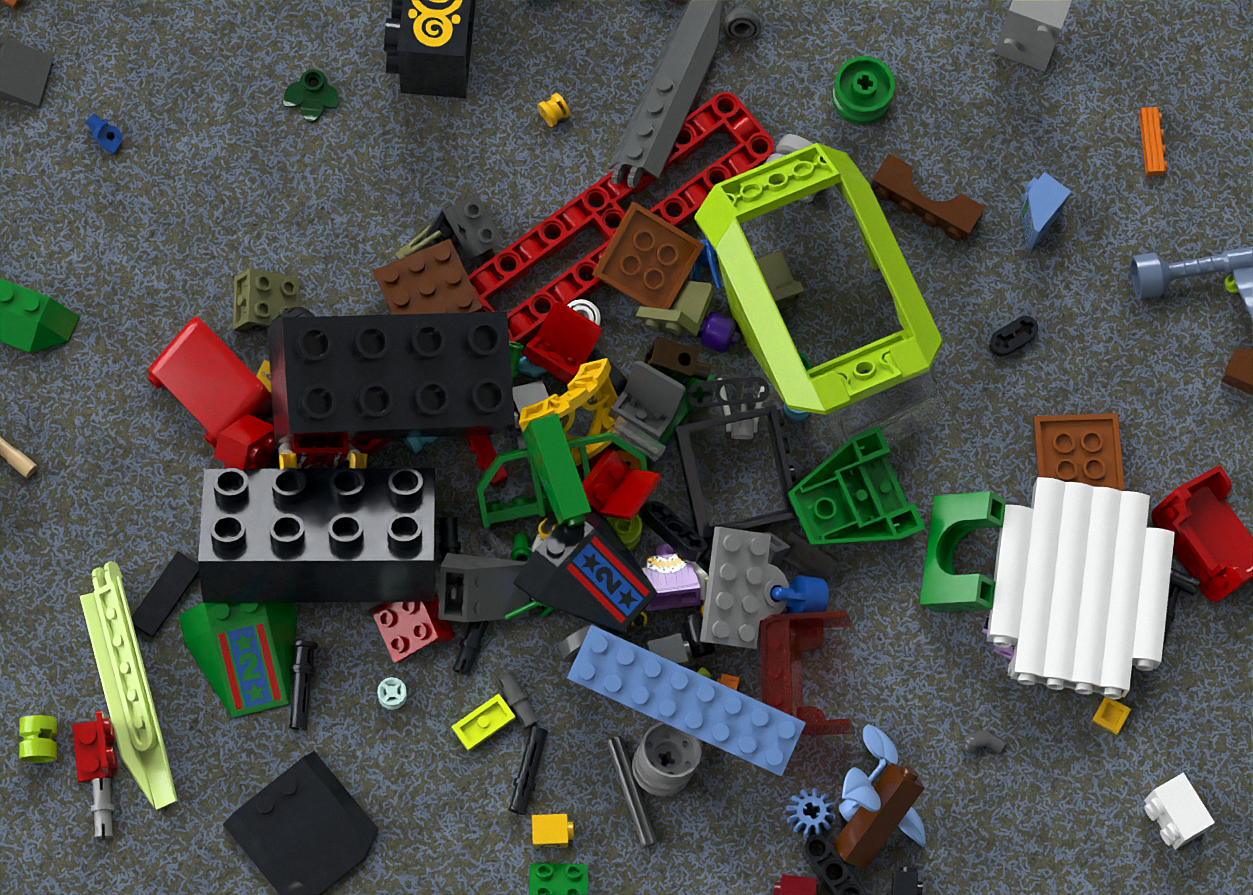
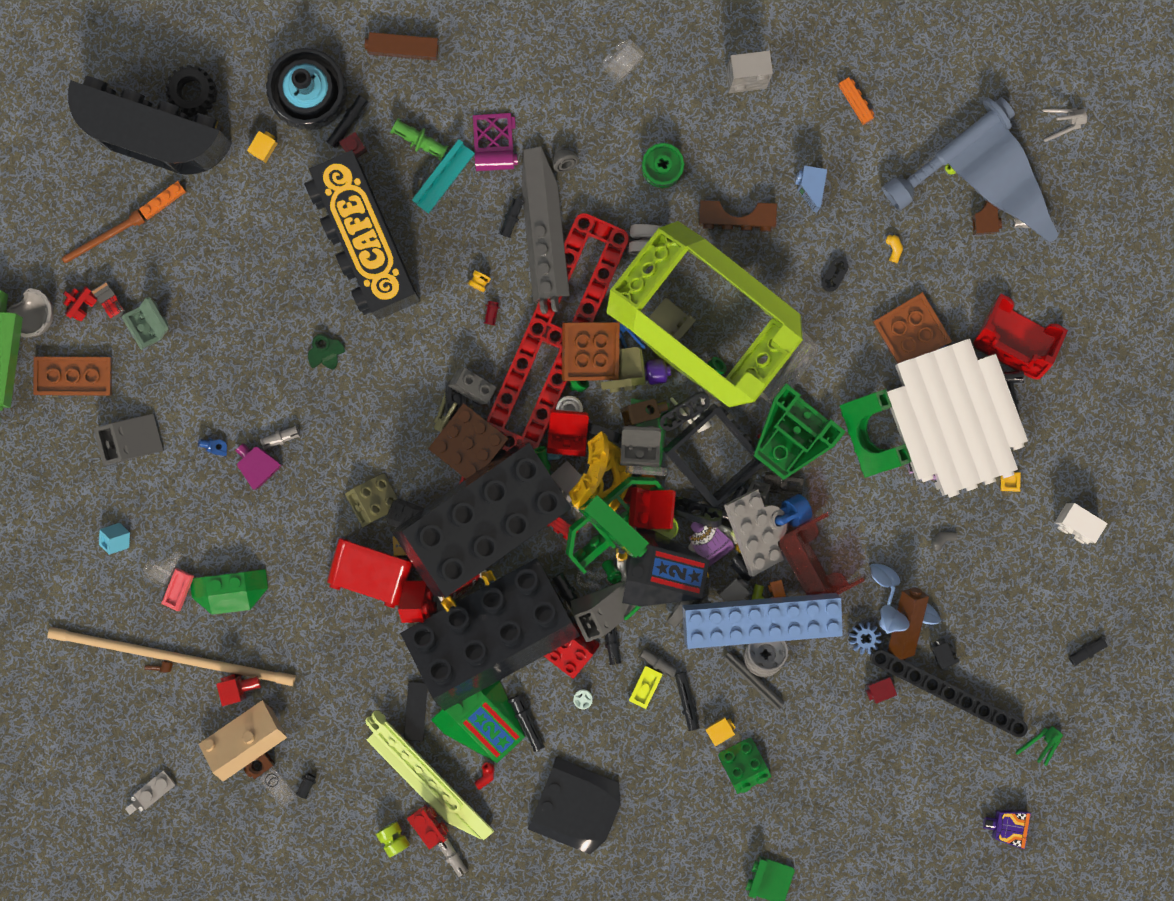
camera: 25 degrees left, 15 degrees up
(144, 183) = (256, 465): none -> magenta torso
(194, 166) = (280, 437): none -> light grey pin
(211, 725) = (487, 775): none -> red arm
(548, 155) = (491, 313): none -> dark red pin
(610, 297) = (579, 386): none -> green tile
(637, 57) = (511, 218): none -> black pin
(1112, 343) = (896, 246): none -> yellow arm

